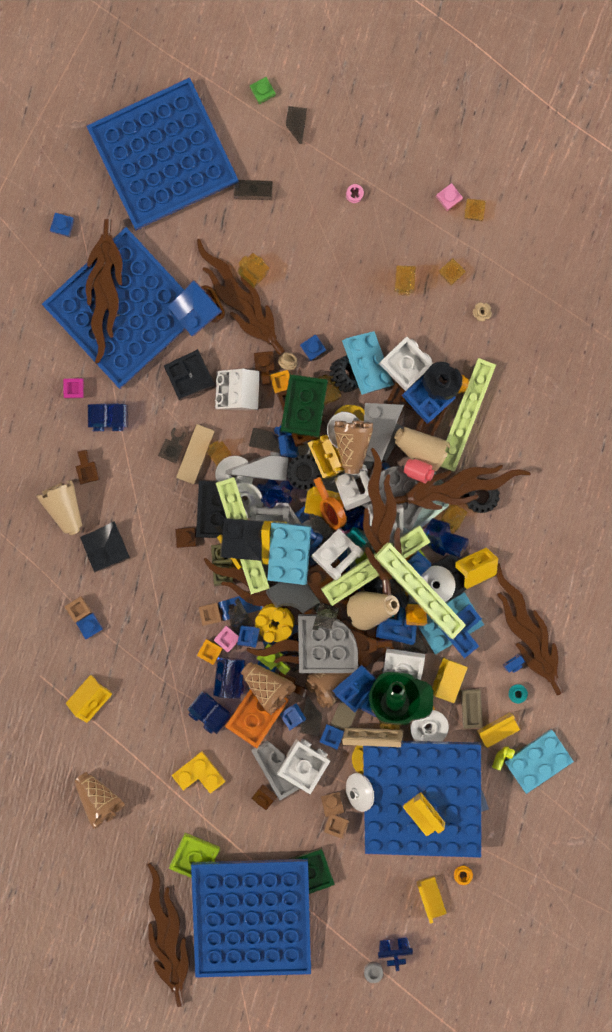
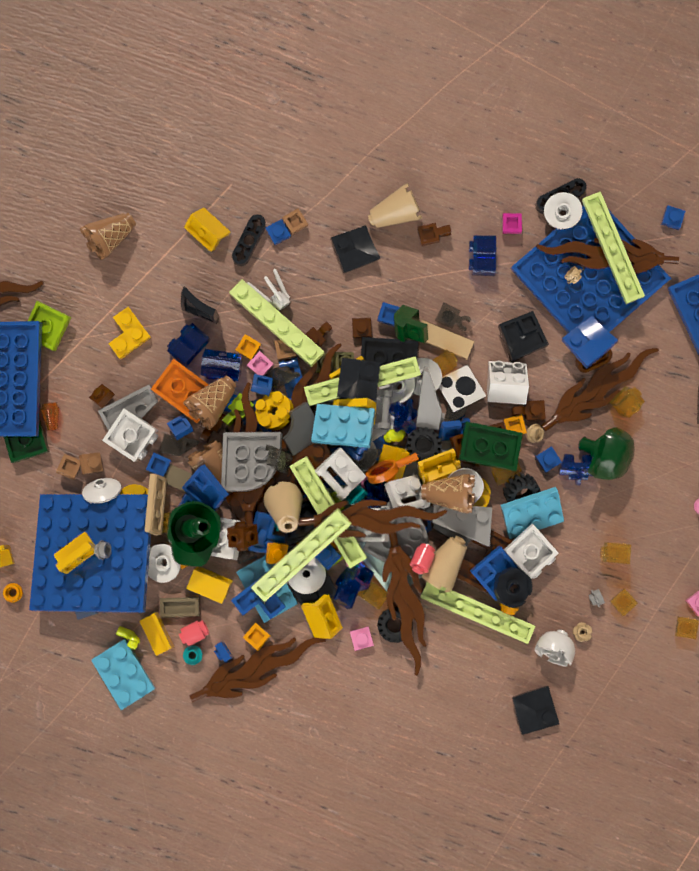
camera: 90 degrees right, 5 degrees down
(41, 324) = (570, 185): none -> black beam
(50, 338) = (563, 202): none -> white dish
(87, 644) = (250, 225): none -> black beam
(97, 286) = (613, 248): none -> yellowish green plate
(126, 325) = (573, 275): none -> tan plate
(160, 622) = (280, 300): none -> white plant
(168, 712) = (192, 305): none -> black plate
(171, 510) = (387, 314): none -> blue plate
(184, 490) = (408, 325): none -> dark green brick
(184, 624) = (277, 323): none -> yellowish green plate
(198, 585) = (317, 336): none -> reddish brown plate
(244, 436) = (461, 388): none -> white sticker
(285, 847) = (51, 415): none -> clear orange cone
(296, 503) = (393, 436): none -> neon yellow arm
(307, 286) = (610, 454): none -> dark green piece
(324, 318) = (575, 470): none -> clear blue hips
(402, 649) = (242, 535): none -> reddish brown brick
(421, 787) = (102, 550): none -> light grey plate
(448, 298) = (596, 598): none -> light grey plate
(495, 528) = (361, 638): none -> bright pink plate
(496, 693) = (194, 633): none -> coral brick
(498, 336) = (557, 647): none -> white cylinder
(498, 631) = (256, 636): none -> light orange plate
(559, 356) = (535, 710): none -> black plate

